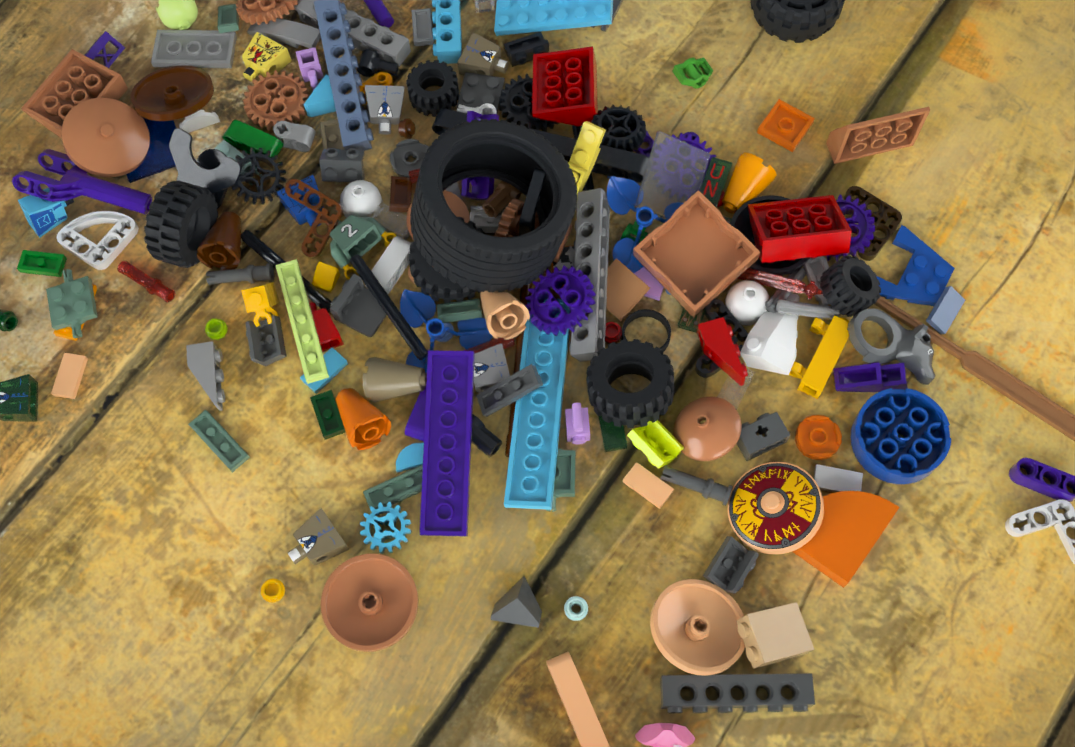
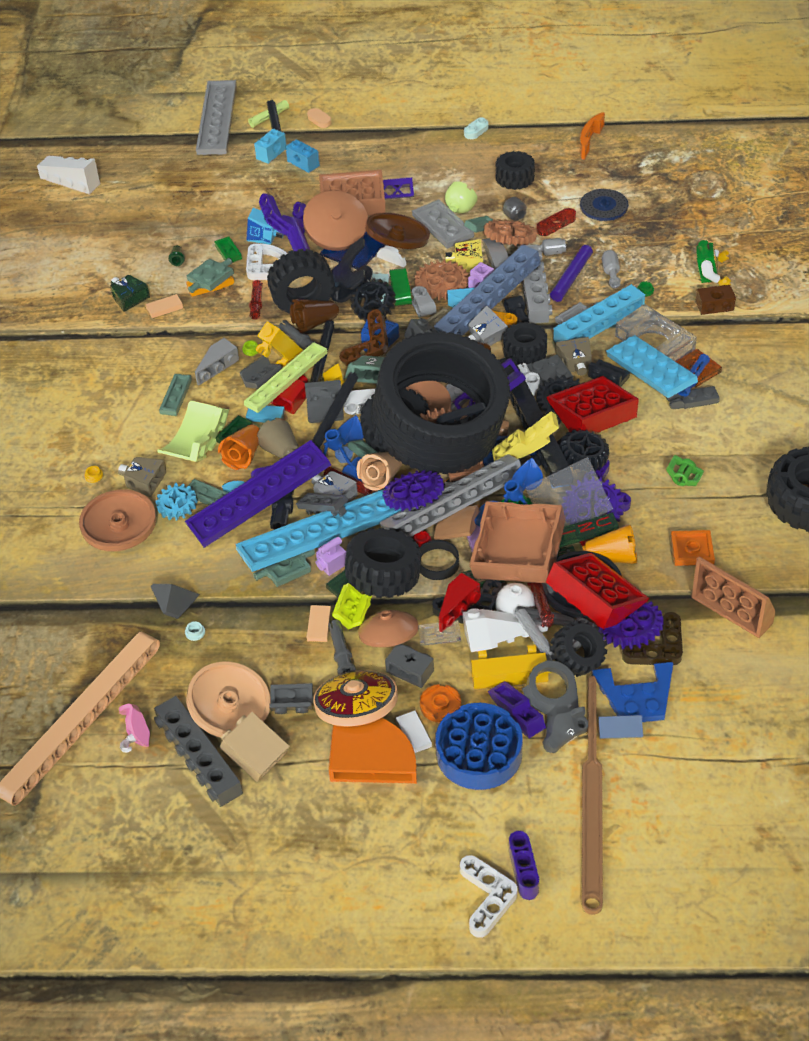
camera: 55 degrees right, 20 degrees down
(298, 455) = (197, 432): none -> yellowish green panel

